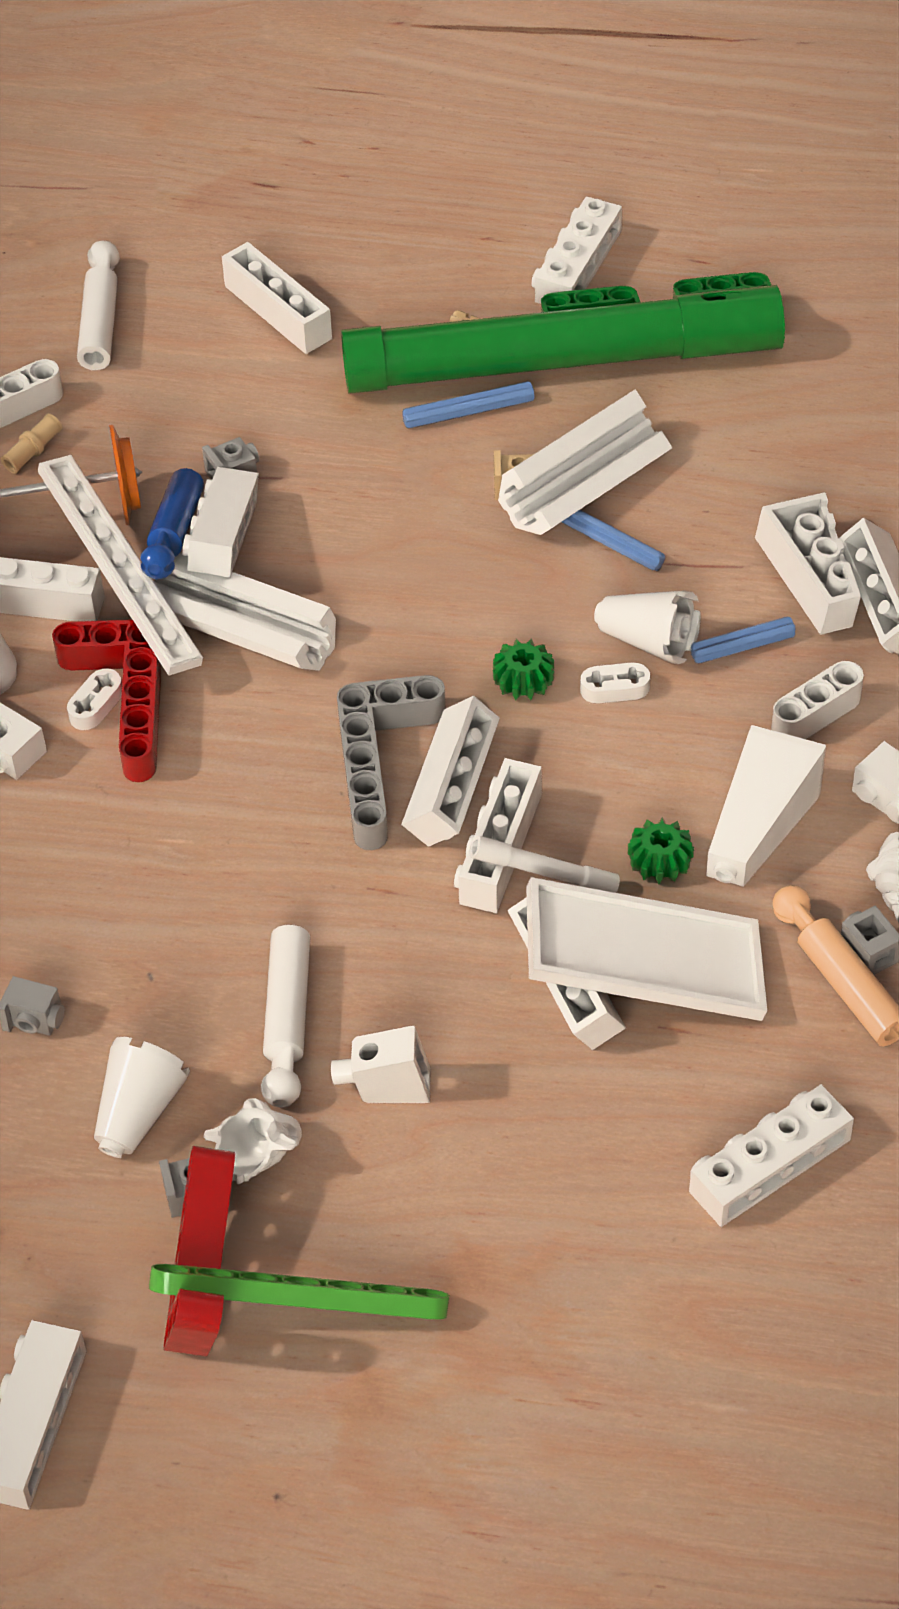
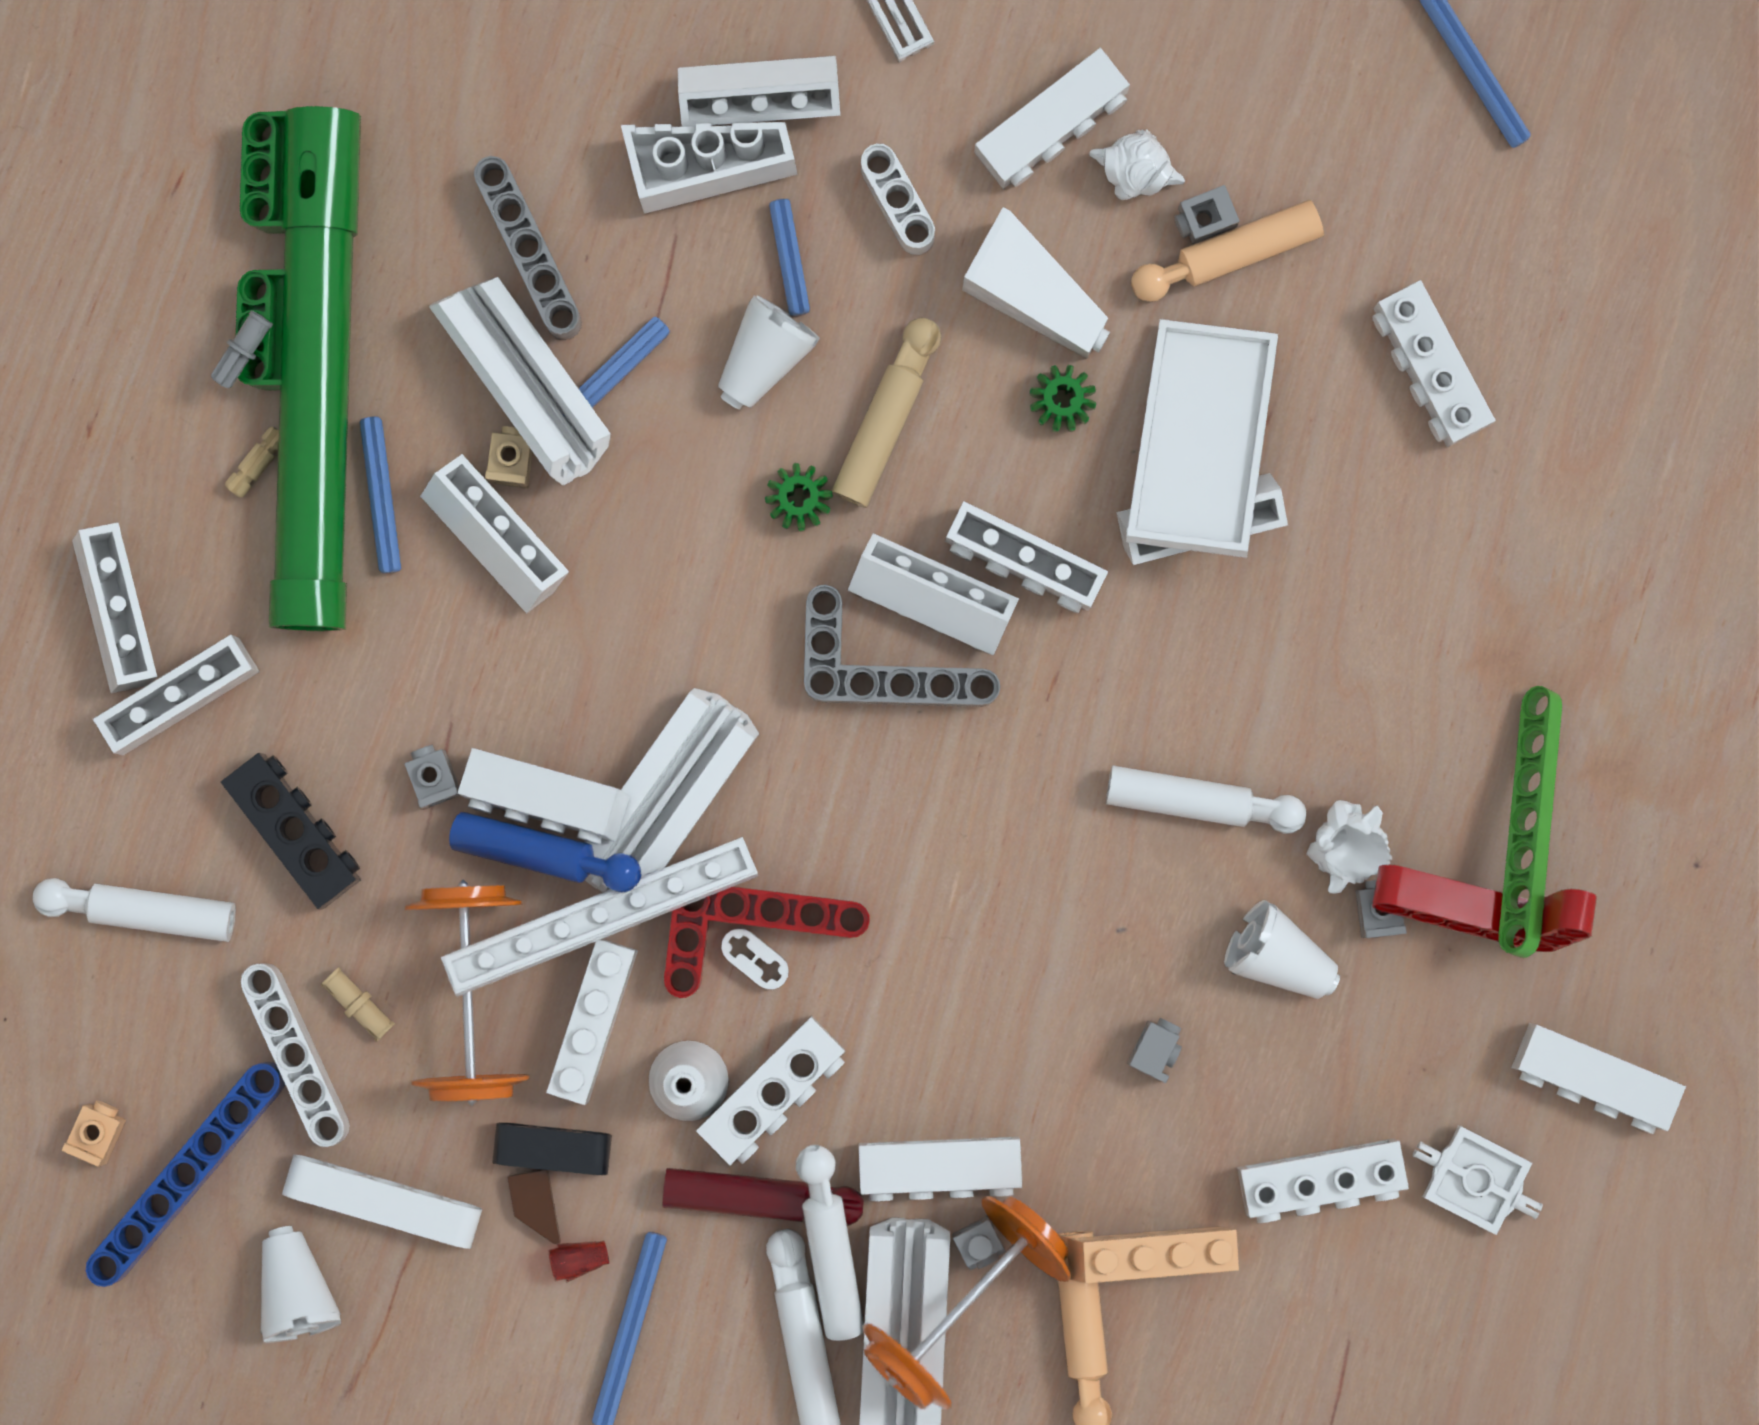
camera: 85 degrees left, 35 degrees up
(173, 383) = (246, 787): none -> black brick
(345, 252) = (114, 607): none -> white brick
(386, 1067) = (1289, 695): white torso -> none
(447, 467) = (494, 533): none -> white brick
(506, 855) = (1082, 557): white piece -> none
(568, 286) = (241, 350): none -> light grey axle
(579, 248) = (151, 323): white brick -> none
(615, 683) = (816, 403): white beam -> none
(615, 722) = (887, 414): none -> tan piece
(701, 463) = (524, 229): none -> light grey beam

